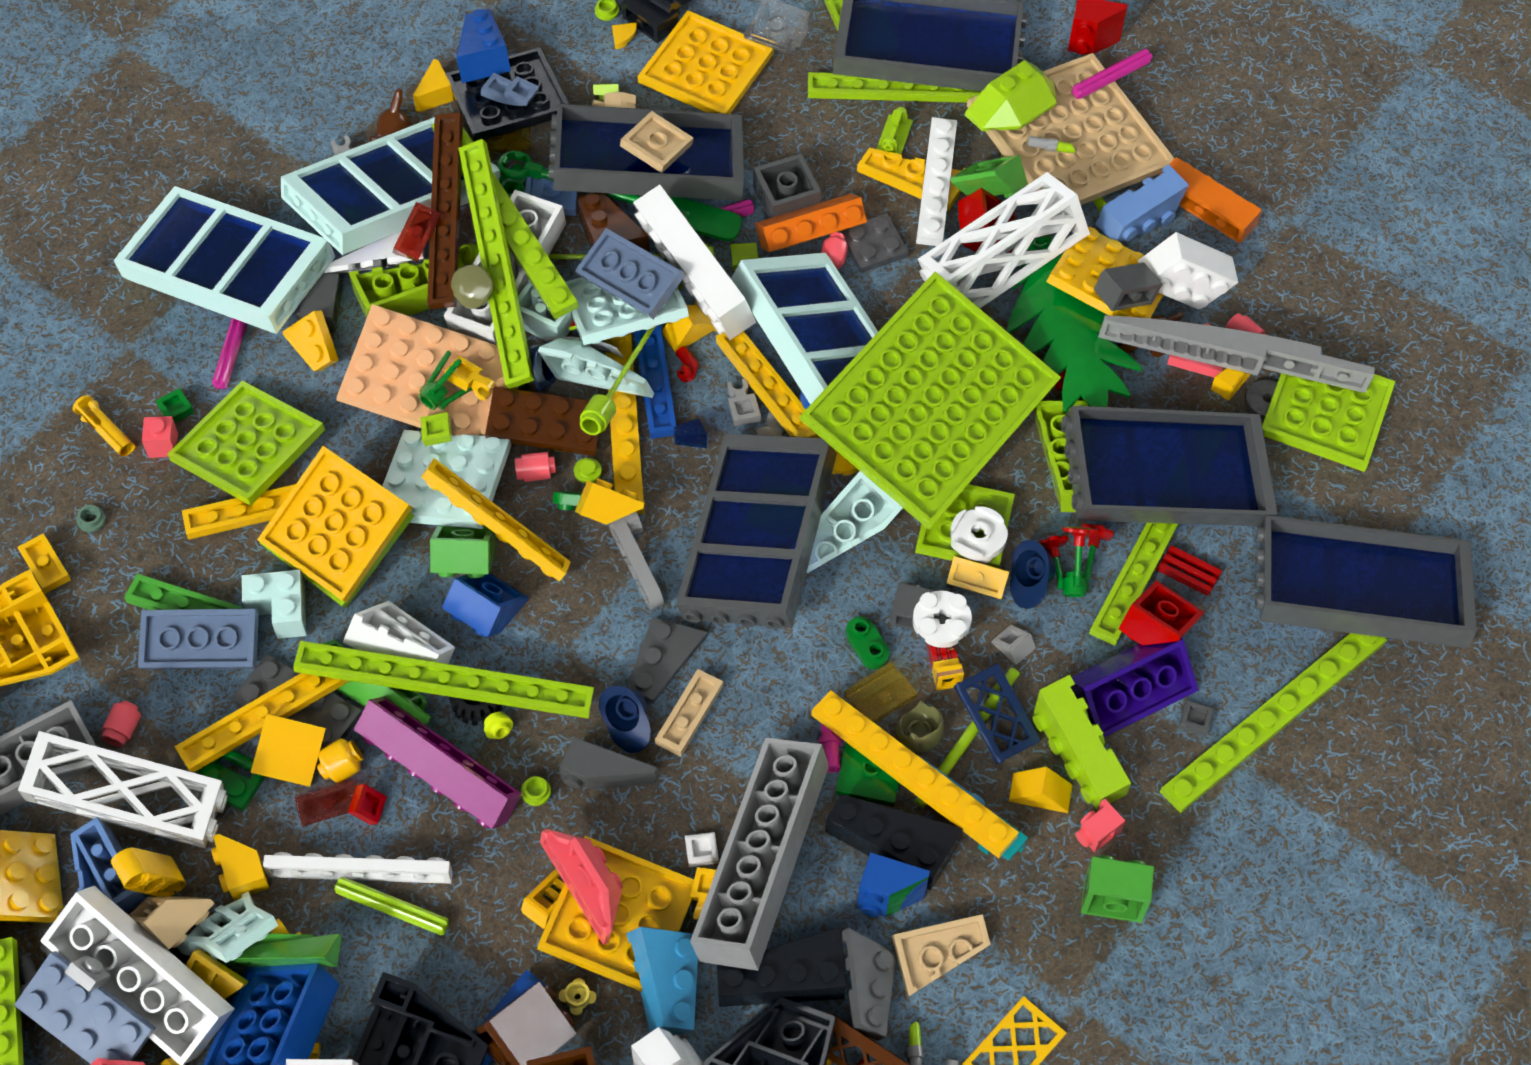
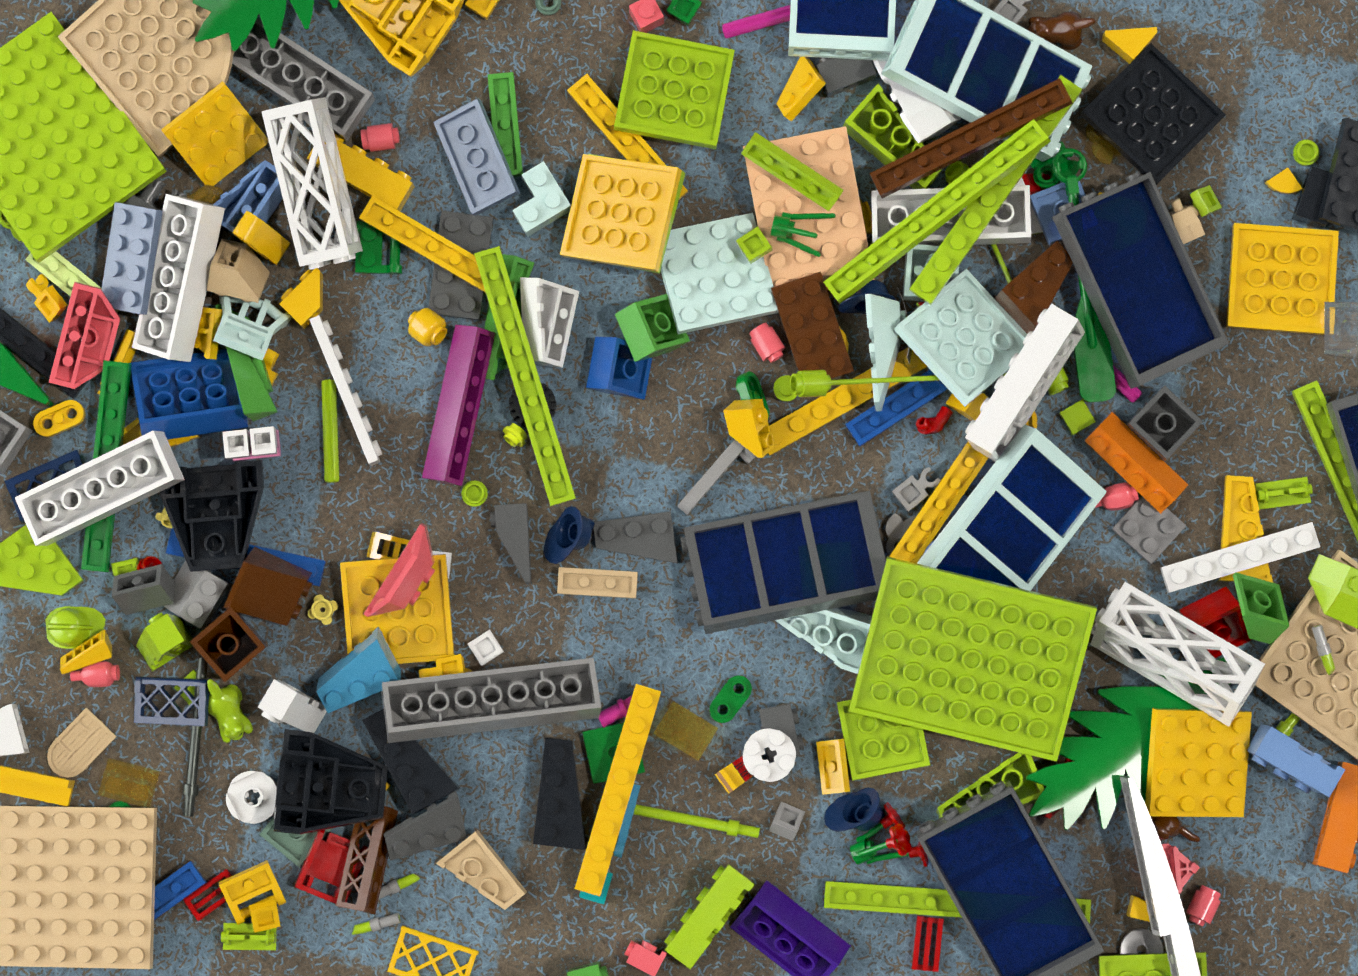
camera: 70 degrees right, 25 degrees up
(88, 973) = (154, 246): light grey plate -> none
(151, 744) = (372, 176): none -> yellow brick
(288, 750) = (413, 283): yellow tile -> none
(325, 802) = (391, 334): clear red slope -> none
(360, 973) = (251, 445): none -> white hips
(367, 804) = (400, 368): red plate -> none
(386, 359) = (792, 171): none -> lime plate
(416, 232) = (933, 126): clear red slope -> none
(468, 376) = (816, 247): yellow plate -> none
(472, 286) = (900, 206): olive hair -> none
(481, 47) = (1190, 64): blue wedge -> none
(501, 523) = (684, 343): yellow plate -> none
(515, 93) = (1148, 118): sand blue slope -> none
(630, 273) = (979, 335): sand blue plate -> none
(656, 141) = (1144, 286): tan plate -> none
(690, 434) = (862, 459): clear blue slope -> none
(890, 886) = (510, 810): blue slope -> none
(920, 728) = (667, 776): olive hair -> none
(978, 548) = (858, 761): white plate -> none
(1007, 693) = (716, 855): dark blue window -> none
(1041, 789) = (658, 897): yellow slope -> none
(1127, 286) = (1176, 785): dark grey brick -> none
(1159, 616) = (856, 938): red slope -> none
(1191, 270) = (1229, 832): white brick -> none

